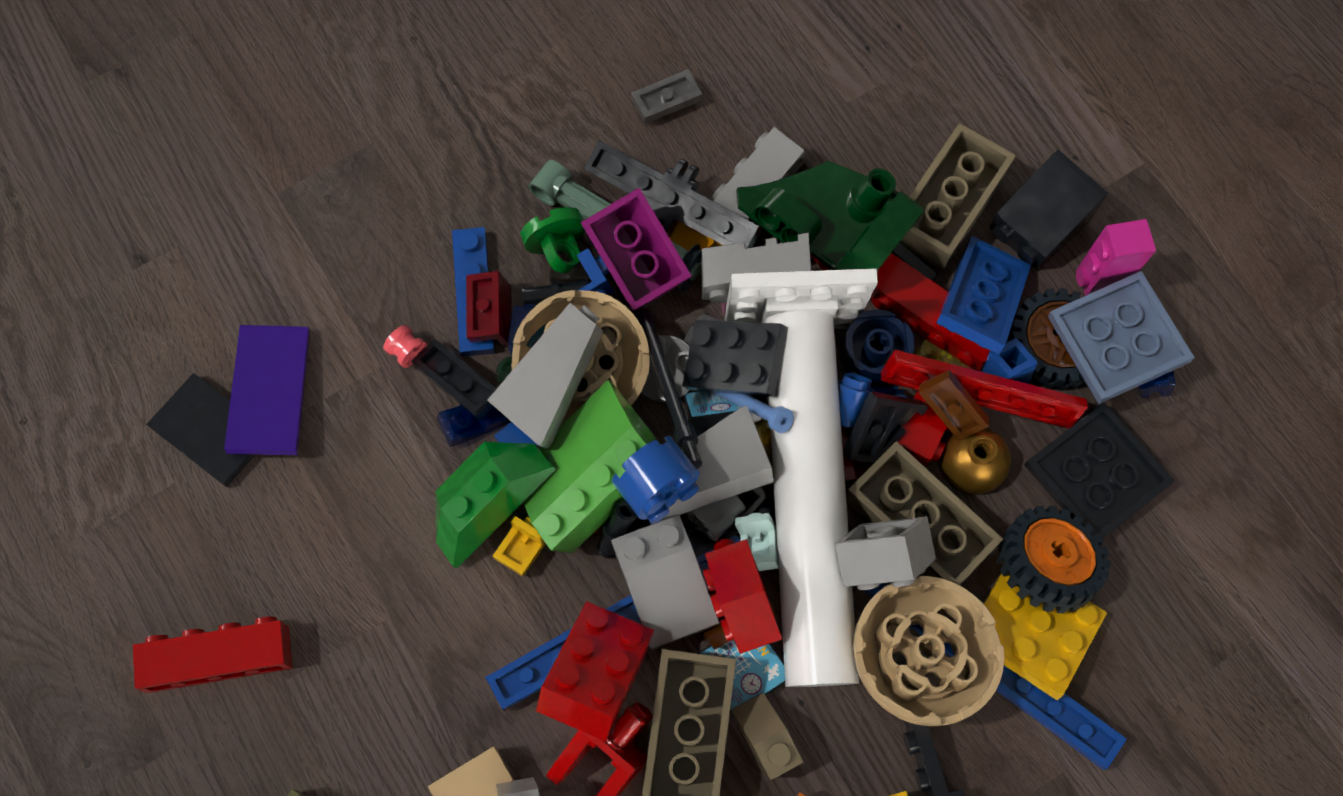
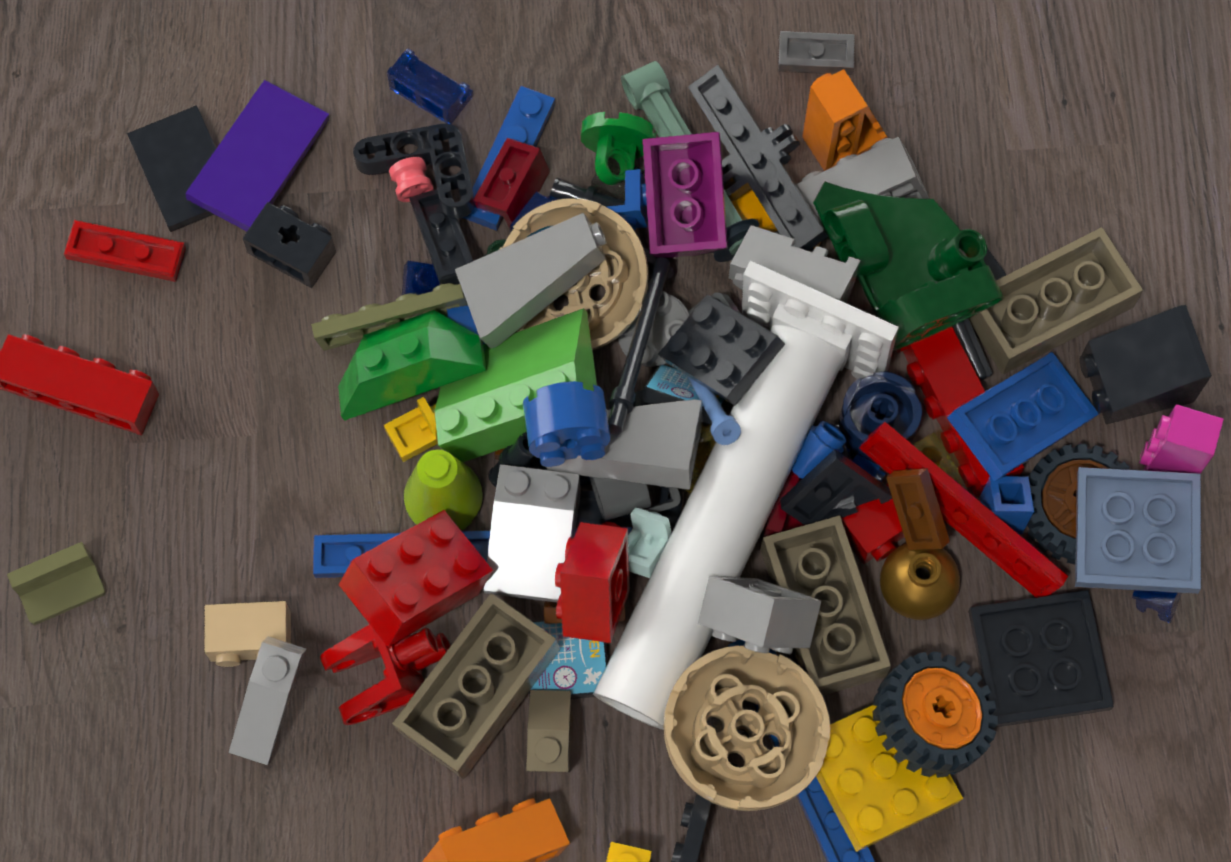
camera: 30 degrees right, 0 degrees up
(195, 522) = (125, 250): none -> red tile
(349, 457) = (299, 260): none -> black brick
(378, 267) = (428, 87): none -> clear blue hinge
(407, 314) = (430, 149): none -> black beam
(415, 495) = (342, 329): none -> olive plate
(567, 584) = (443, 484): none -> lime cone
(718, 137) = (838, 120): none -> orange wedge

